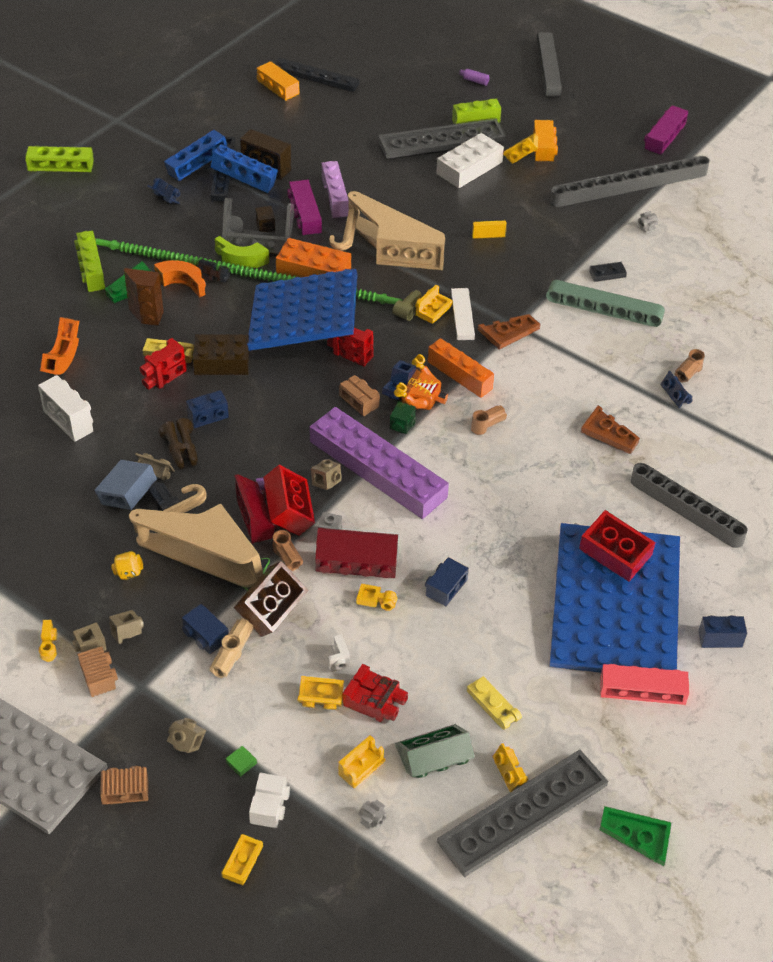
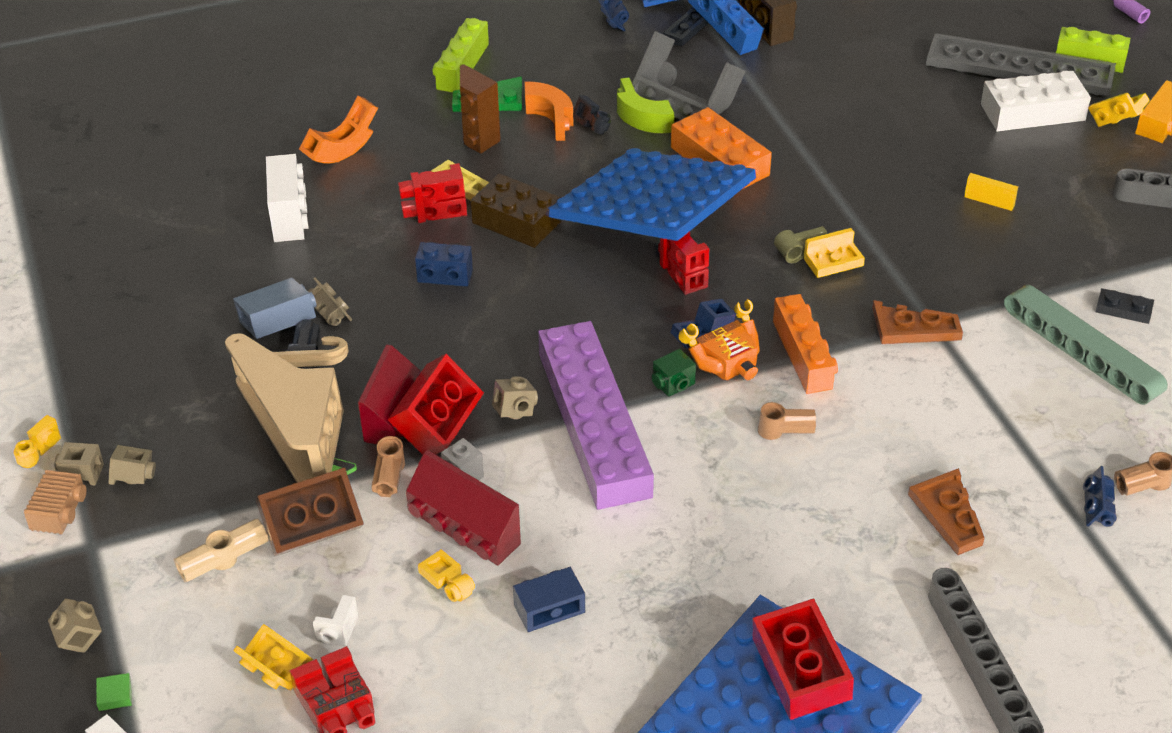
camera: 35 degrees right, 5 degrees down
(127, 565) = (196, 399): yellow head -> none
(179, 450) = (380, 302): dark brown piece -> none
(204, 628) = (211, 509): dark blue brick -> none
(232, 268) = (628, 127): bright green hose -> none
(265, 219) = (705, 79): dark brown brick -> none
(305, 207) = (767, 84): magenta brick -> none
(336, 190) = (816, 84): lavender arch -> none
(359, 395) = (643, 323): medium nougat brick -> none
(394, 235) = (847, 152): tan piece -> none
(462, 314) = (868, 281): white tile -> none

